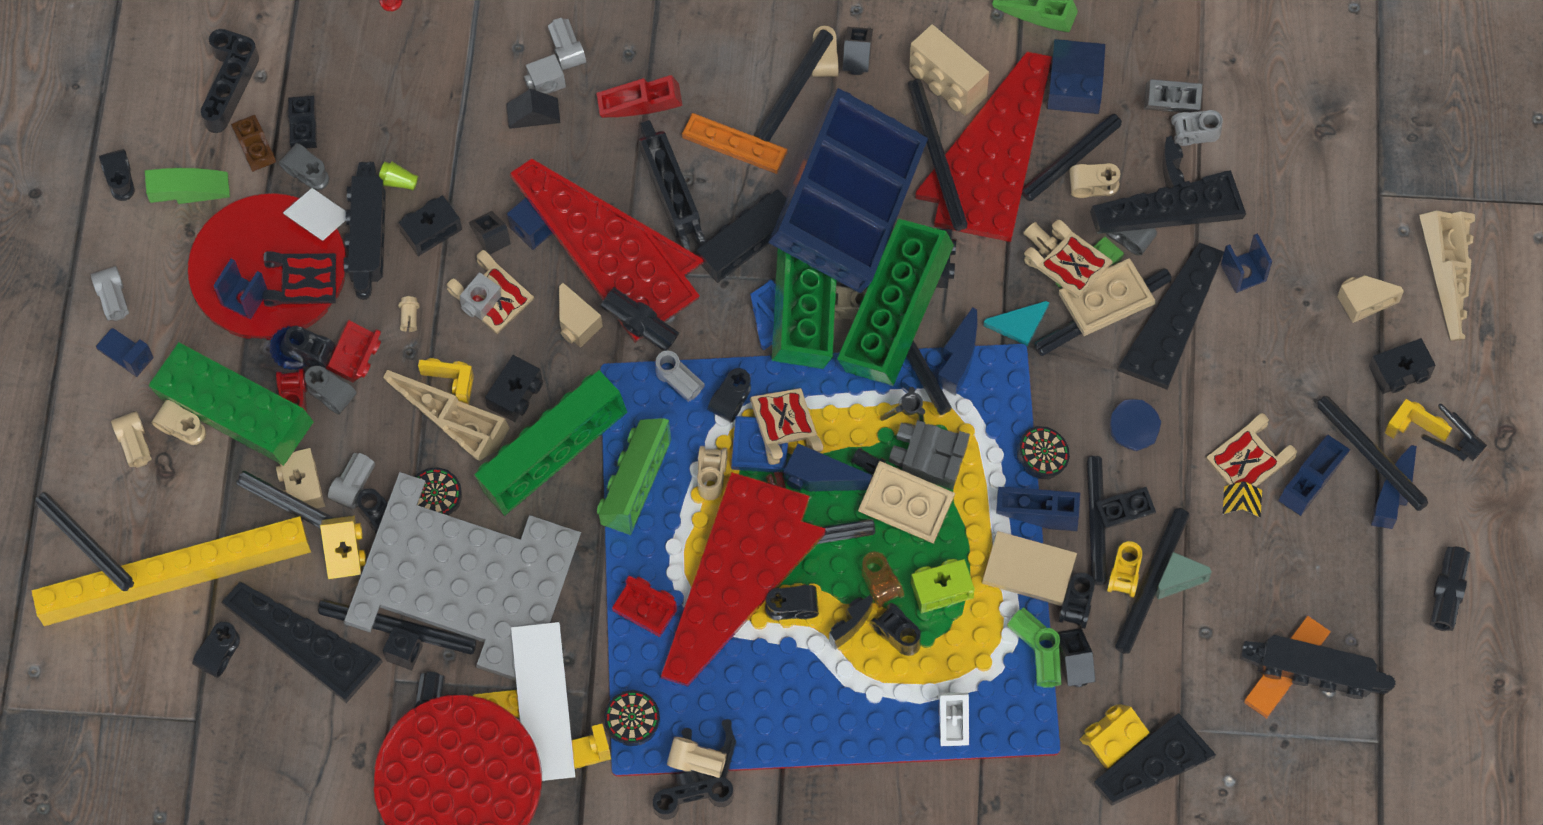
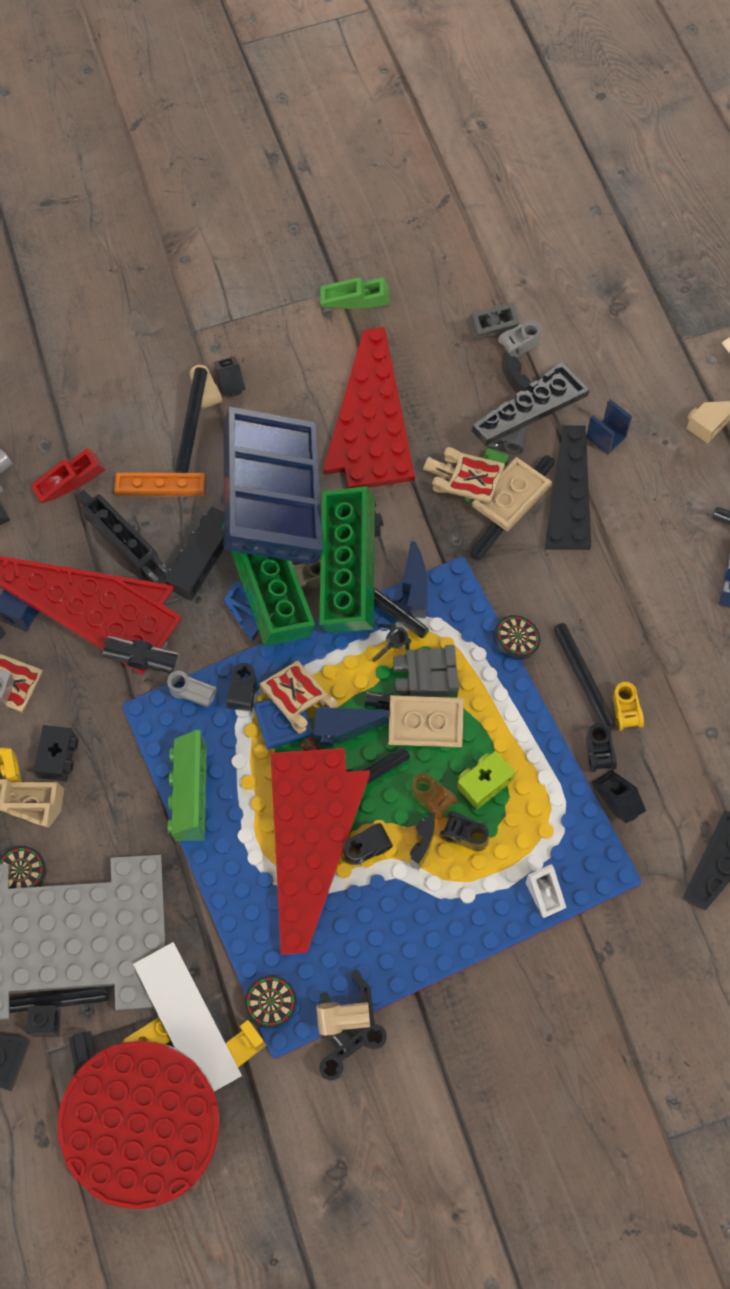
camera: 20 degrees left, 0 degrees up
(551, 442) = (104, 788): green brick -> none
(577, 318) = (86, 673): tan slope -> none
(645, 605) = (243, 897): red bracket -> none
(711, 468) = (251, 756): tan piece -> none
(937, 155) = (329, 433): black axle -> none
(948, 70) = (309, 364): tan brick -> none
(1020, 323) = (450, 542): teal tile -> none
(1029, 568) = (549, 736): tan tile -> none
(1040, 507) = (537, 683): dark blue slope -> none
(1046, 659) = (599, 809): bright green piece -> none
(1071, 157) = (433, 397): black axle -> none
(1076, 76) = (411, 335): dark blue slope -> none
(1091, 180) = (459, 409): tan piece -> none
(1114, 734) = (680, 848): yellow bracket -> none
(1126, 507) = (603, 656): black slope -> none
(1135, 424) = (580, 586): dark blue hat -> none
(1151, 582) = (651, 711): black axle -> none
(1181, 575) = (671, 693): sand green slope -> none
(1242, 496) = (688, 613): sticker -> none
(1247, 457) = (679, 581): flag -> none

